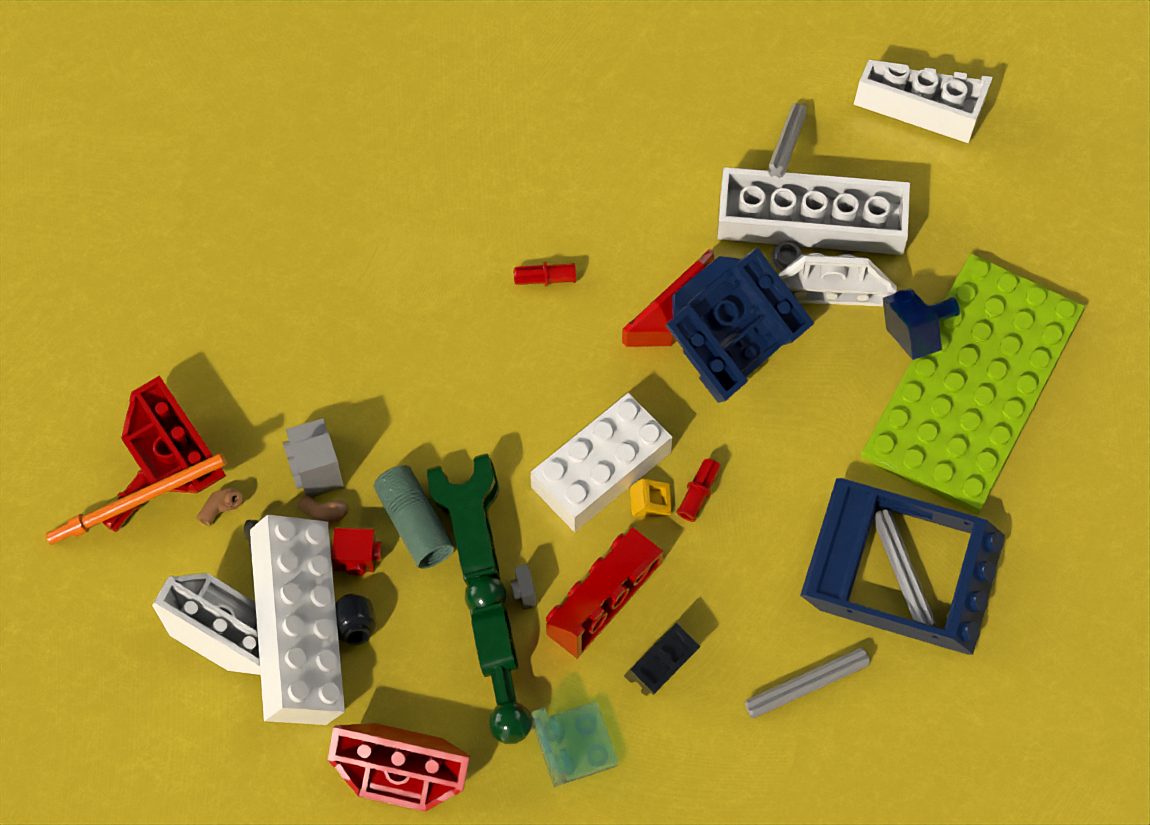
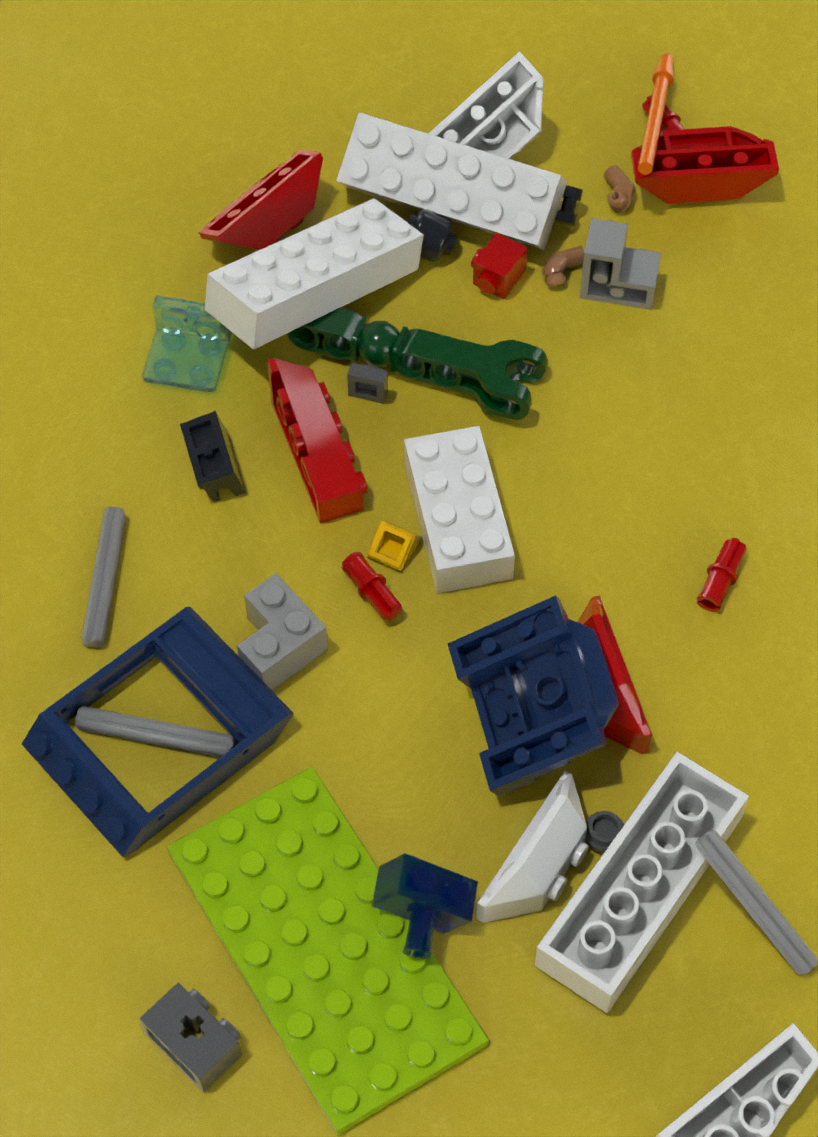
camera: 120 degrees right, 5 degrees down
(414, 522) = (495, 321): sand green piece -> none
(460, 662) = (312, 273): none -> white brick
(781, 517) = (286, 635): none -> light grey brick
(1093, 433) = (199, 1059): none -> dark grey brick

